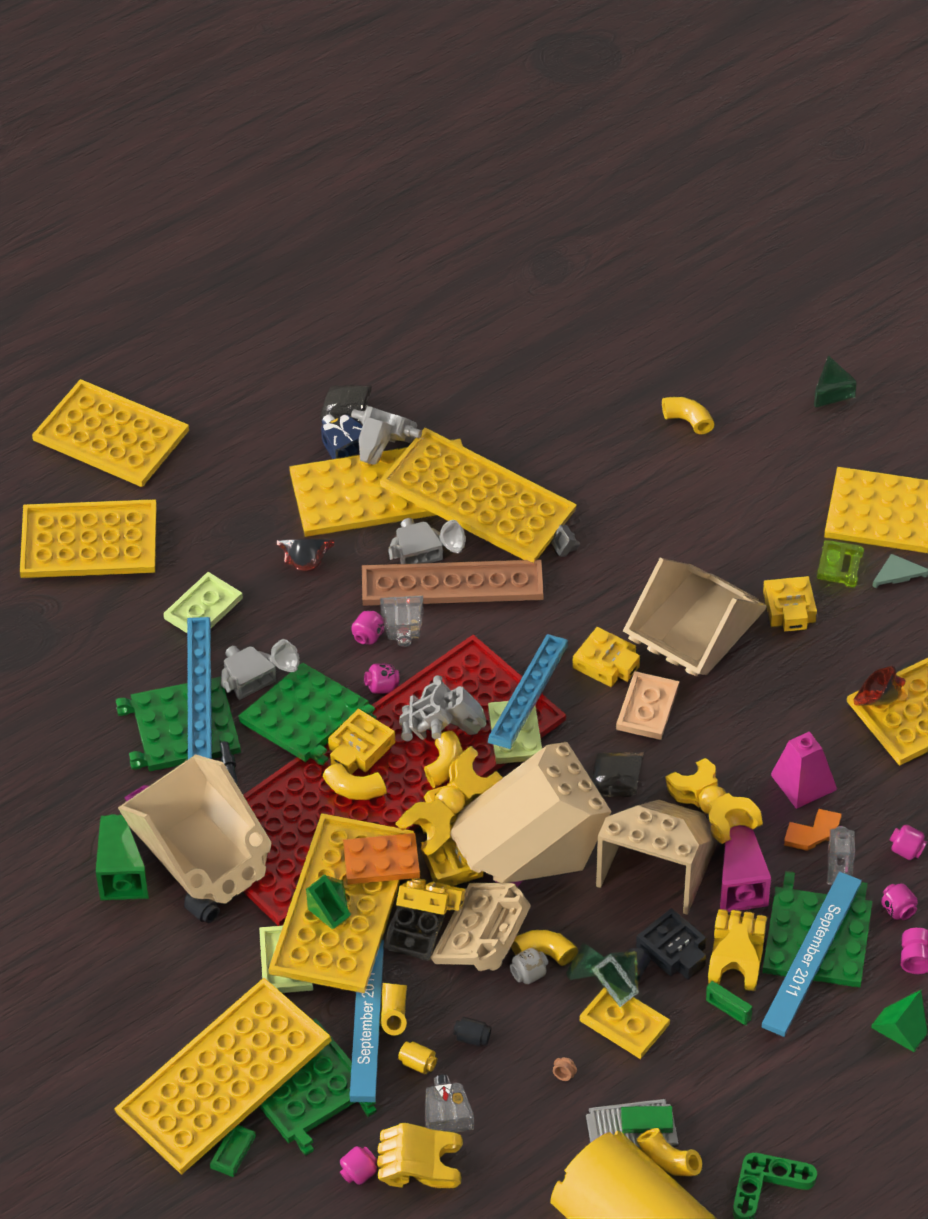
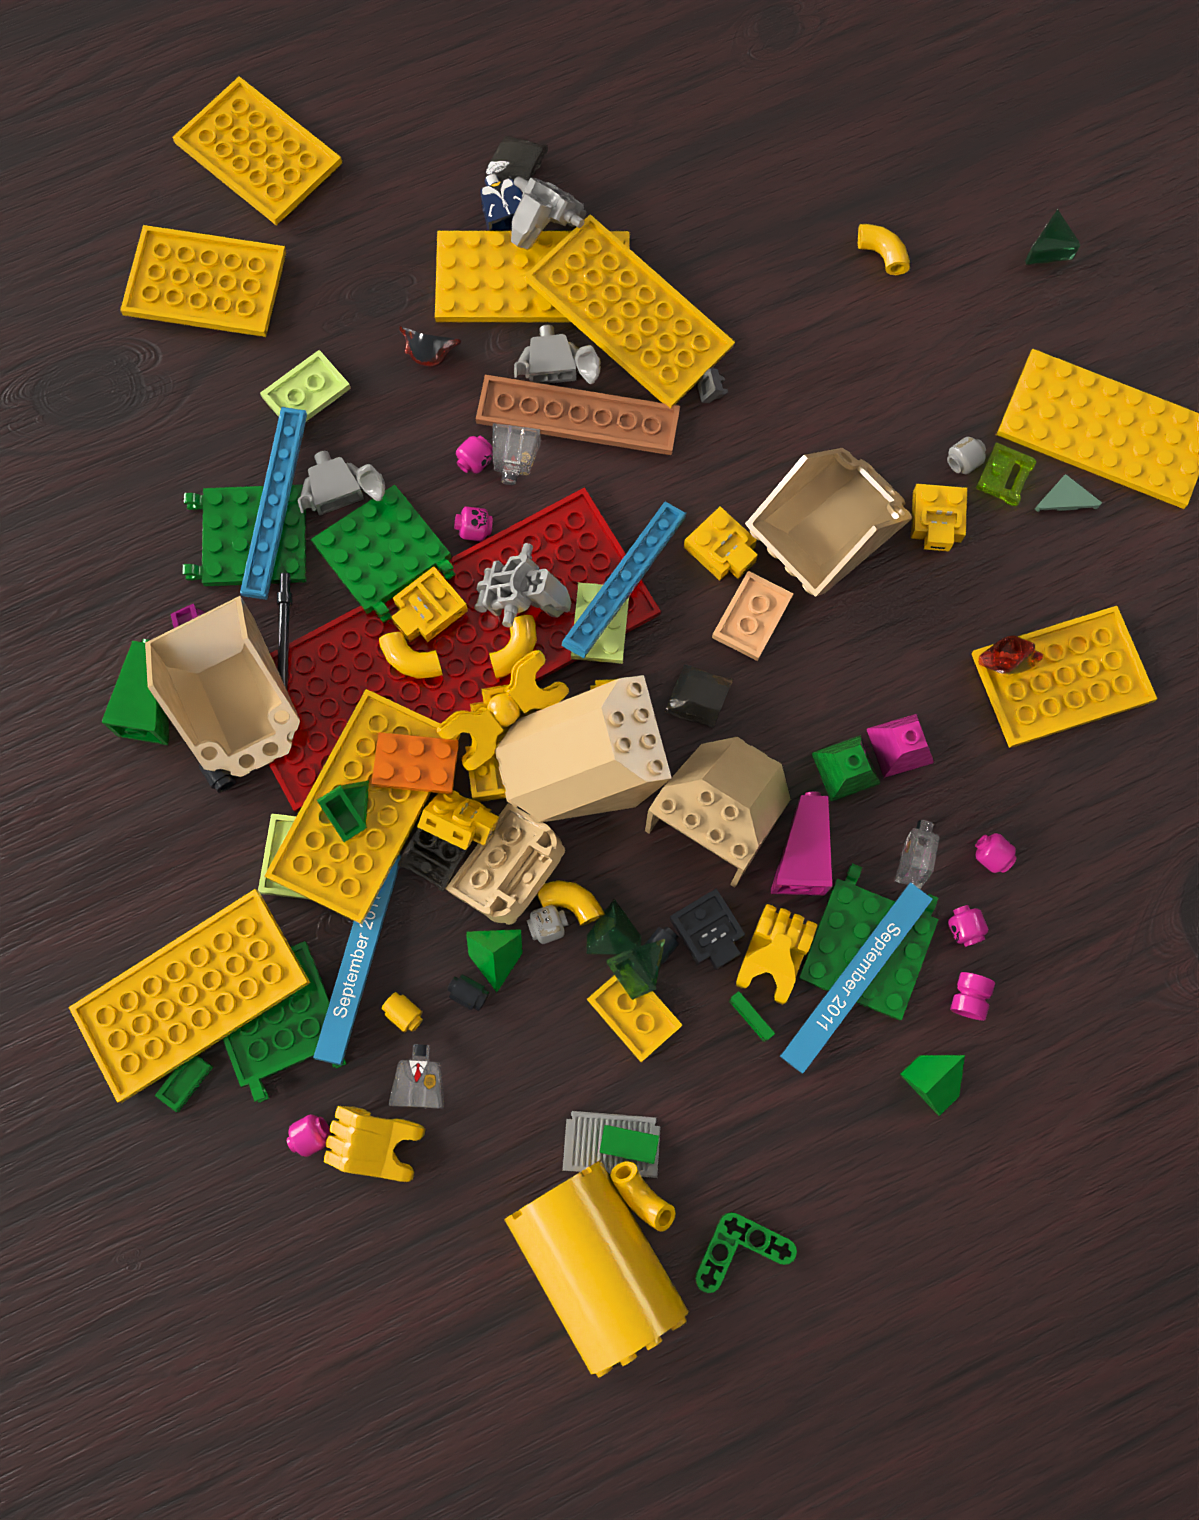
camera: 10 degrees right, 25 degrees up
(393, 1008) = (389, 948): yellow cylinder -> none
(487, 998) = (495, 953): none -> green slope
(564, 1068) = (556, 1059): nougat plate -> none
(722, 808) = (794, 760): yellow piece -> none
(766, 789) = (845, 768): none -> green slope
(802, 554) = (966, 455): none -> light grey head
(807, 837) = (887, 819): orange tile -> none

